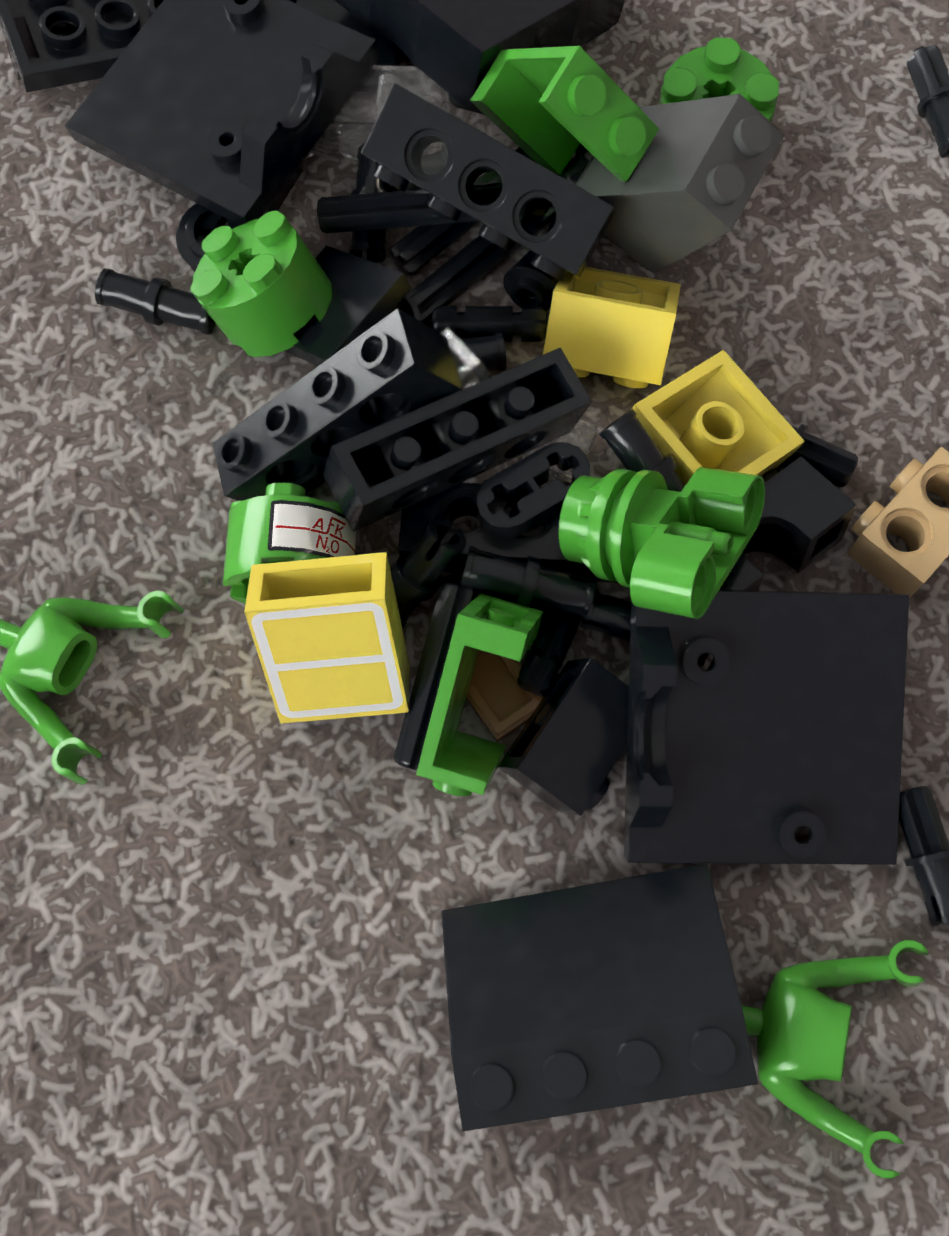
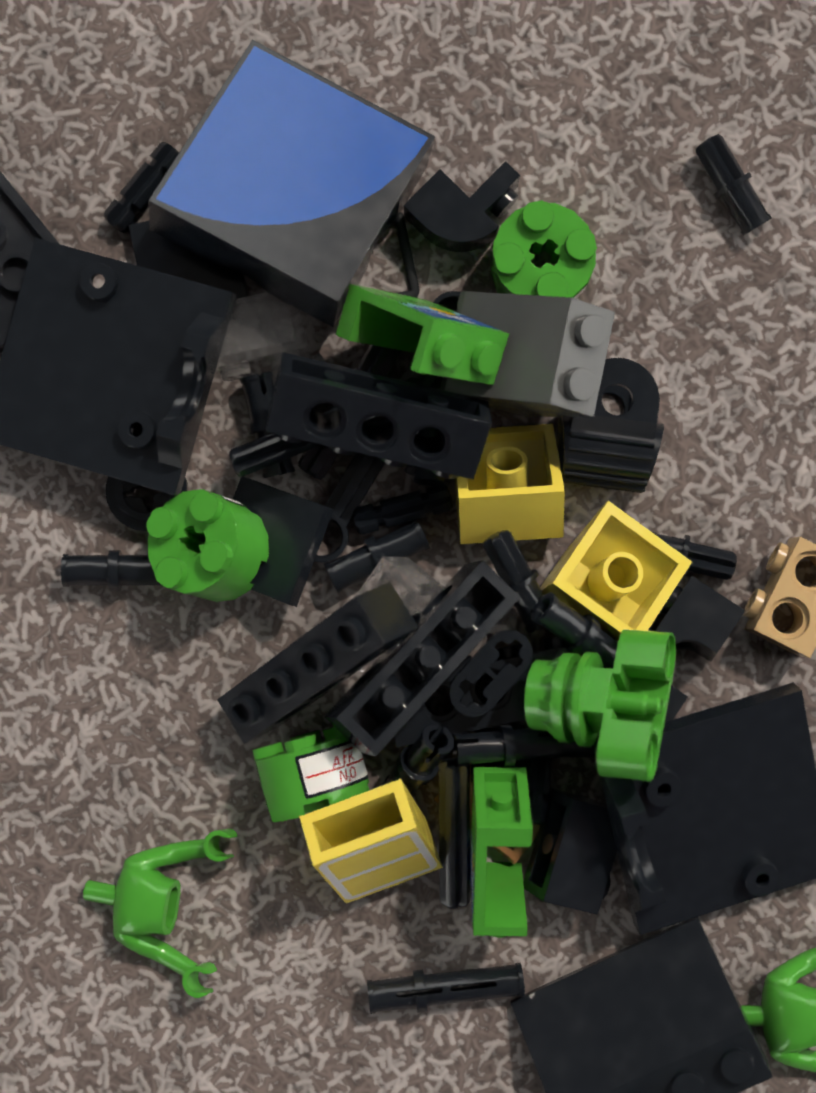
camera: 20 degrees left, 15 degrees up
(363, 863) = (384, 997): none -> black pin
(592, 373) = (516, 573): none -> black axle
(635, 53) = (454, 219): none -> black brick
(746, 293) = (611, 448): none -> black piece

